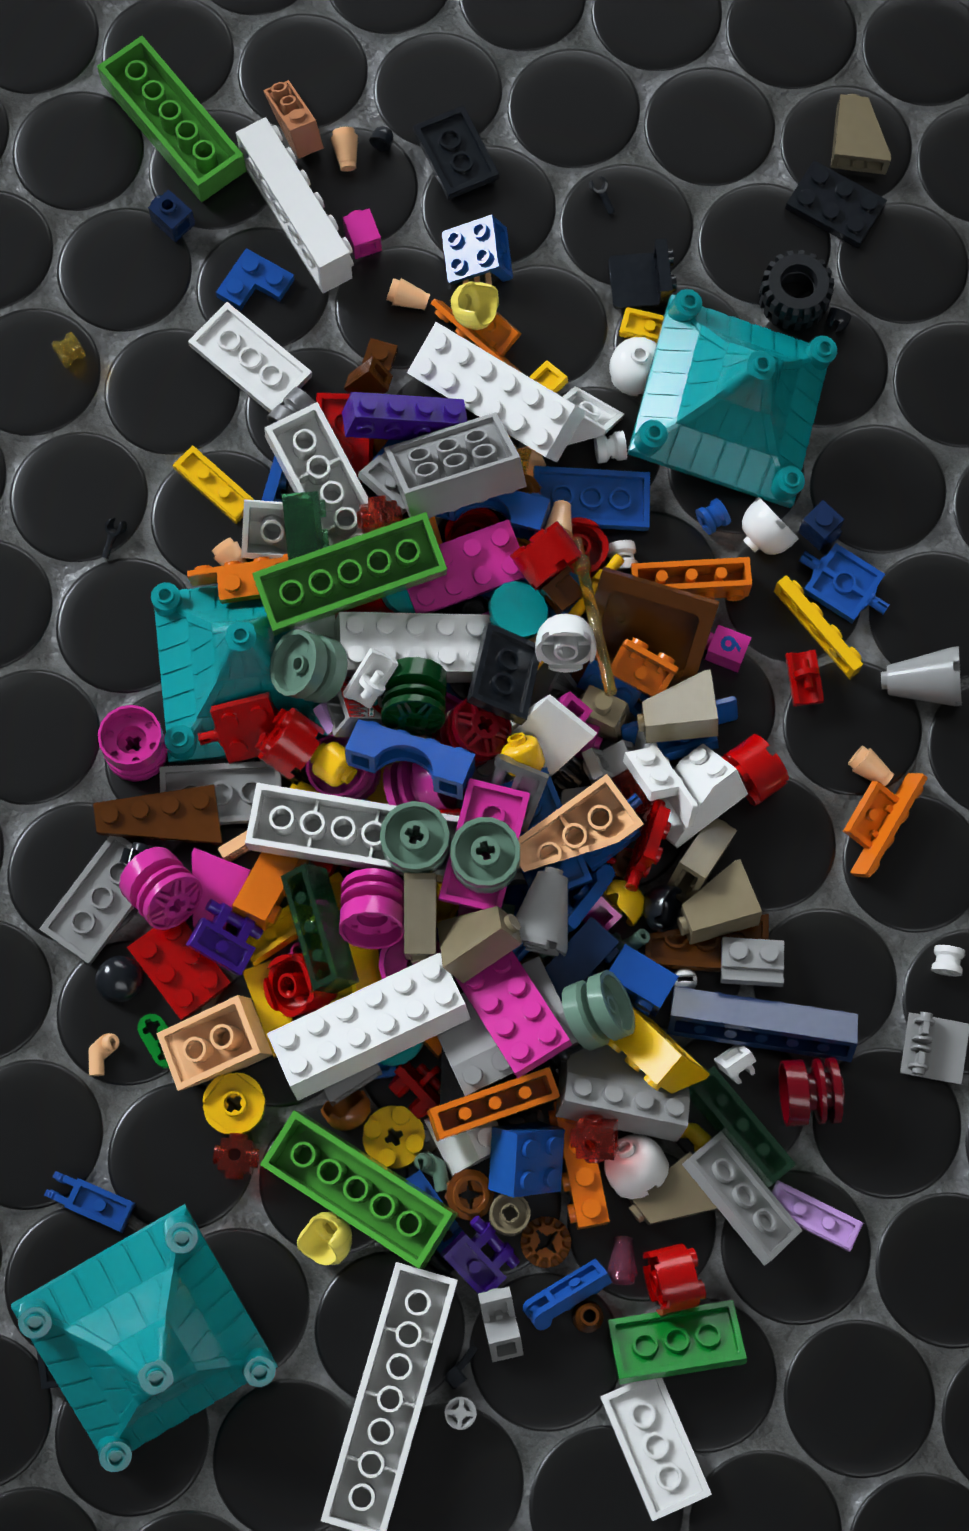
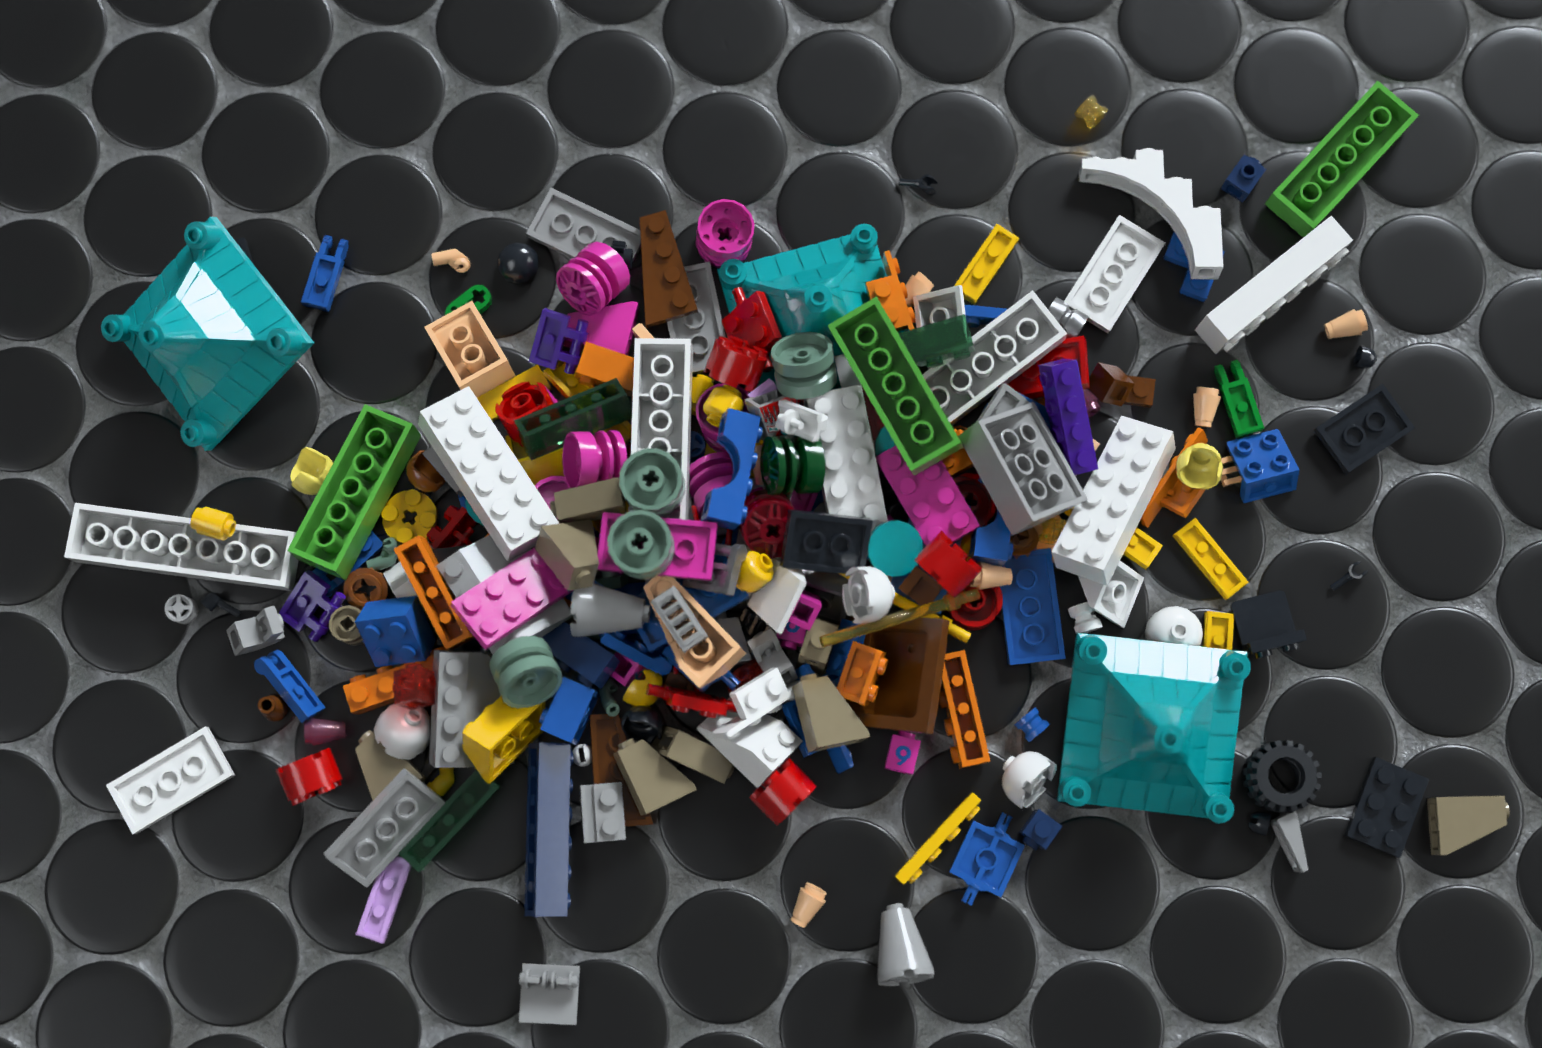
camera: 85 degrees right, 5 degrees up
(178, 971) = (521, 313): red plate -> none
(181, 284) = (1172, 198): none -> white arch
(231, 1086) = (418, 362): yellow plate -> none
(244, 1165) = (380, 392): clear red brick -> none
(294, 119) = (1367, 272): nougat slope -> none
(362, 233) = (1260, 354): dark pink brick -> none
(374, 1351) = (213, 523): none -> yellow brick
(378, 514) = (968, 399): clear red brick -> none
(405, 262) = (1239, 401): none -> green hinge
(545, 1258) = (335, 675): dark orange gear -> none
(550, 854) = (664, 599): none -> light grey slope
(565, 320) = (1210, 559): none -> yellow tile
(626, 550) = (979, 641): white wheel -> none
(676, 1342) = (254, 787): green plate -> none
(735, 1061) = (512, 809): white tile -> none
(804, 678) = (883, 830): red hips -> none
(814, 1091) = (488, 880): dark red wheel -> none
(856, 294) = (1290, 838): none -> light grey slope
(879, 818) = (758, 918): orange bracket -> none
(948, 960) = (631, 997): white wheel -> none

